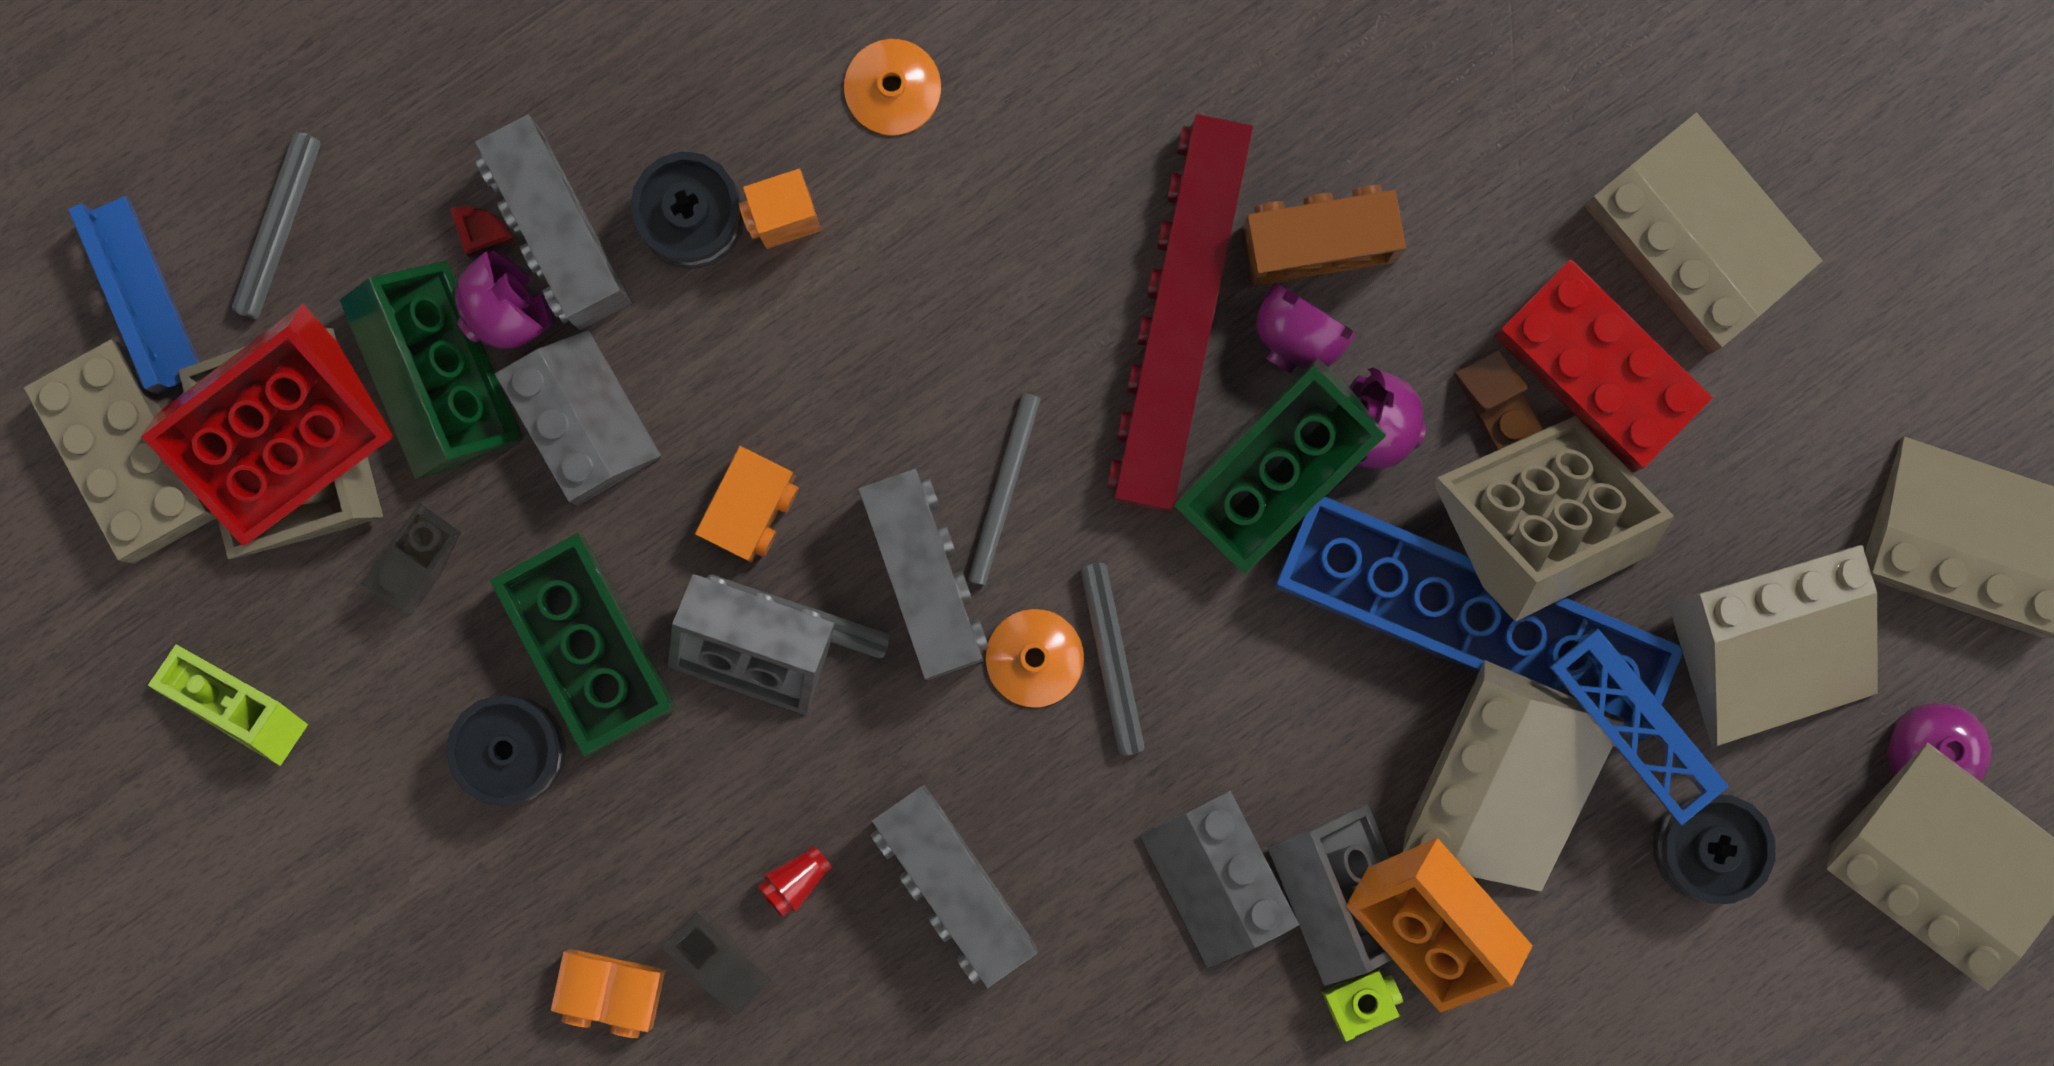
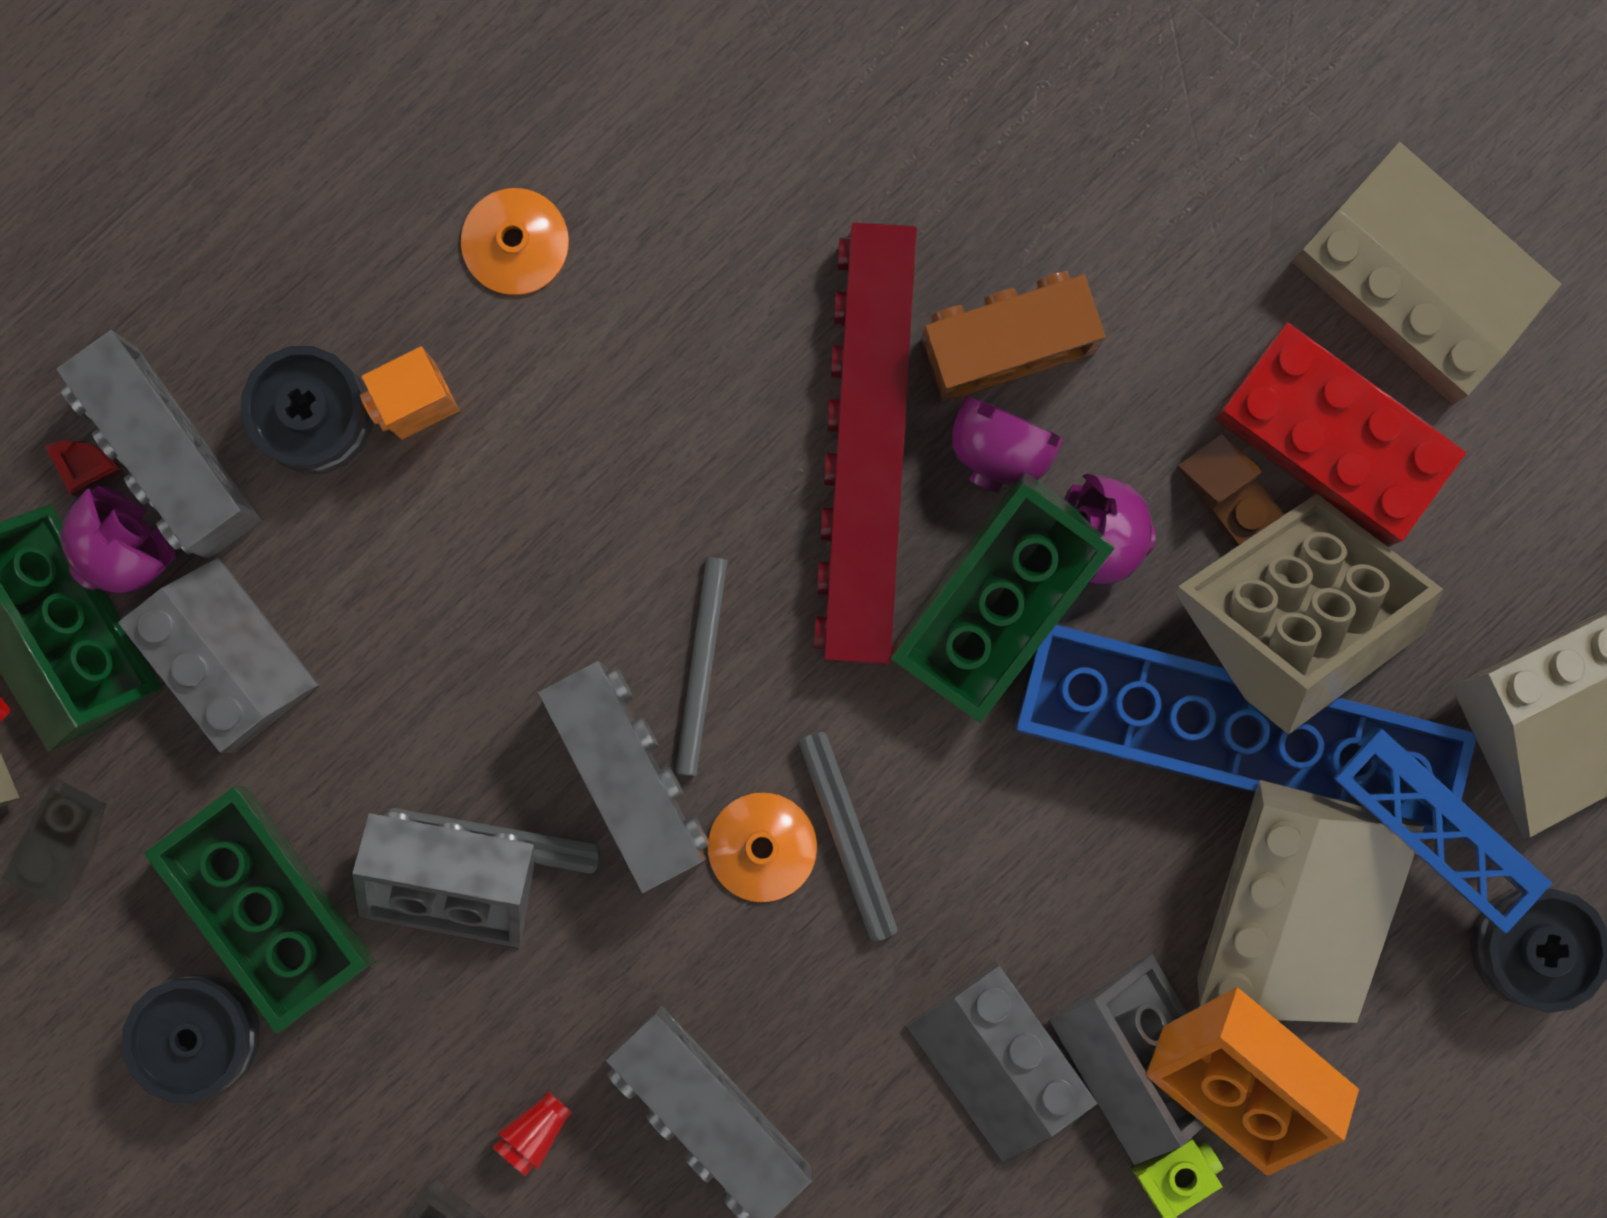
camera: 10 degrees left, 0 degrees up
(748, 505) = (421, 726): orange brick -> none

